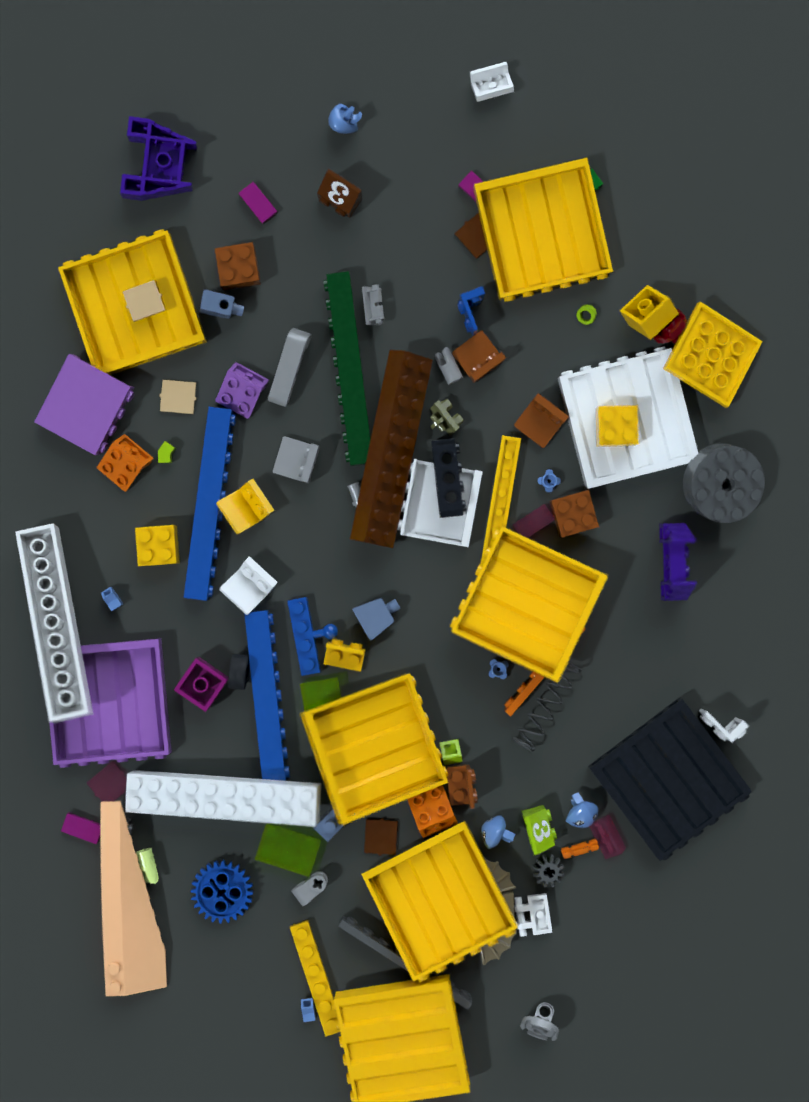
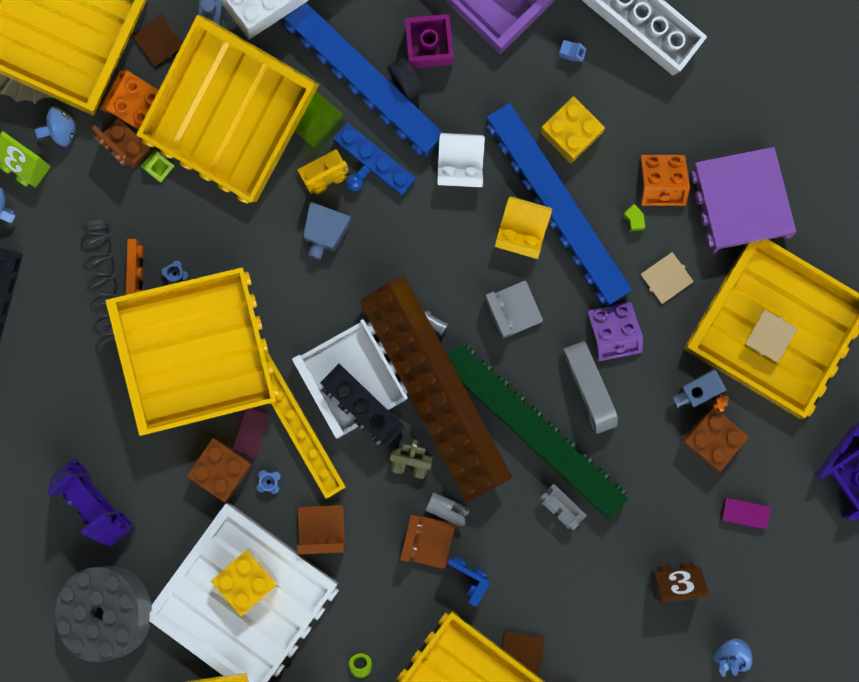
camera: 140 degrees right, 5 degrees down
(213, 285) = (720, 402): none -> orange axle

